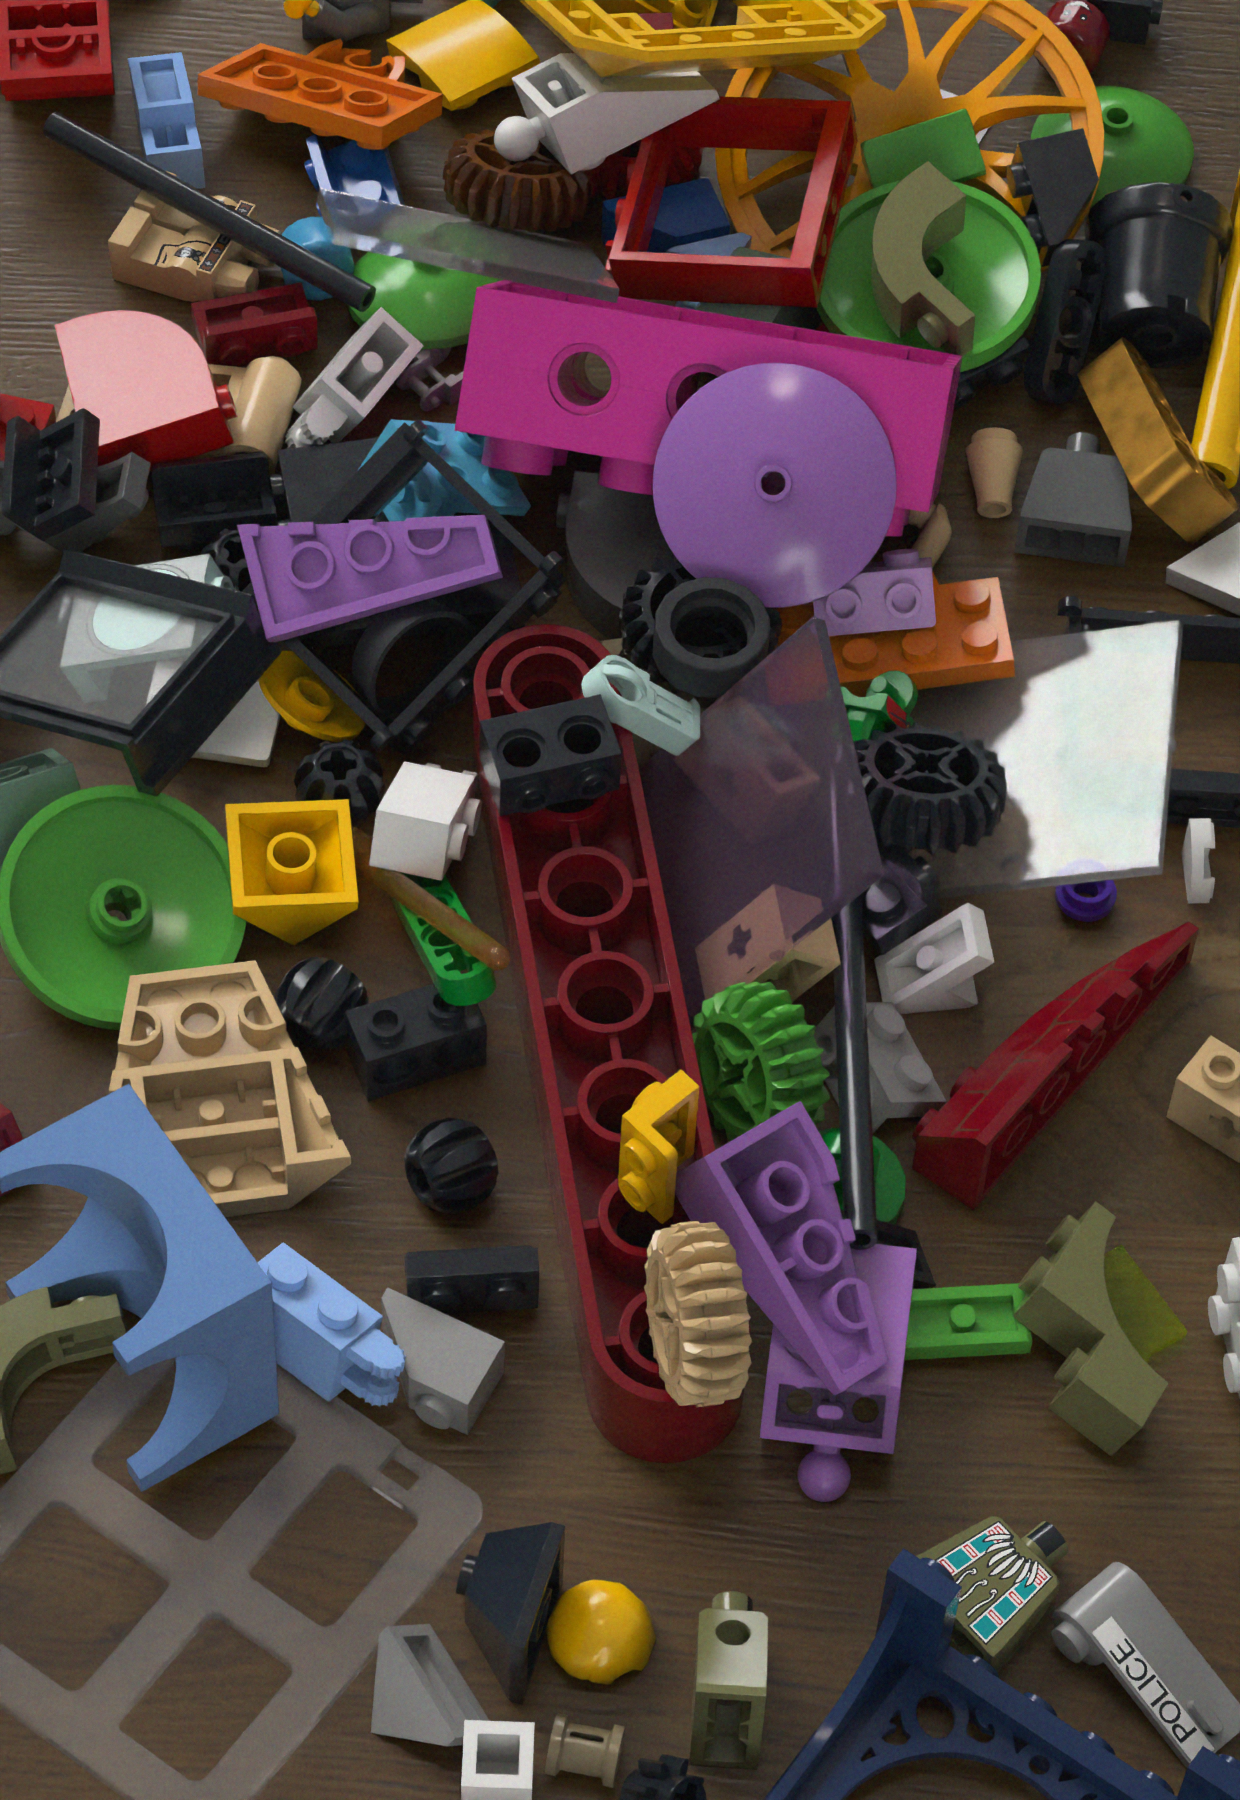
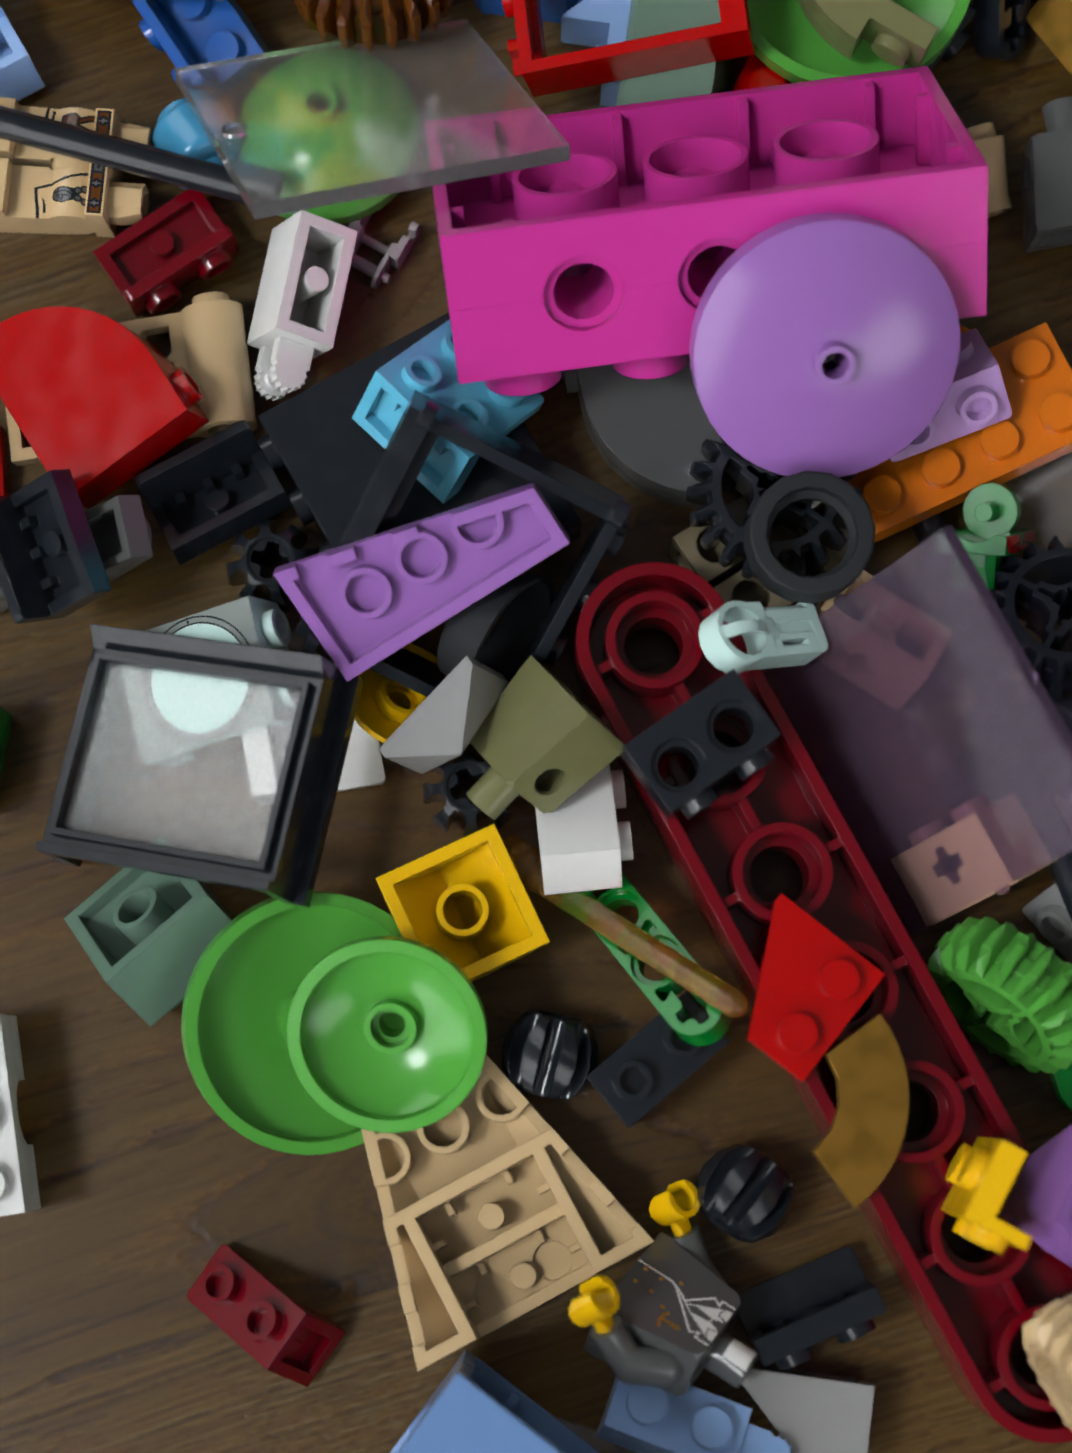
camera: 15 degrees left, 25 degrees up
(158, 882) = (378, 1073): none -> bright green dish
(333, 1215) = (668, 1310): none -> dark grey torso
(339, 697) = (446, 718): none -> light grey slope
(433, 732) = (539, 744): none -> olive torso
(566, 972) = (805, 989): none -> red wing
(582, 1081) = (869, 1110): none -> pearl gold tile

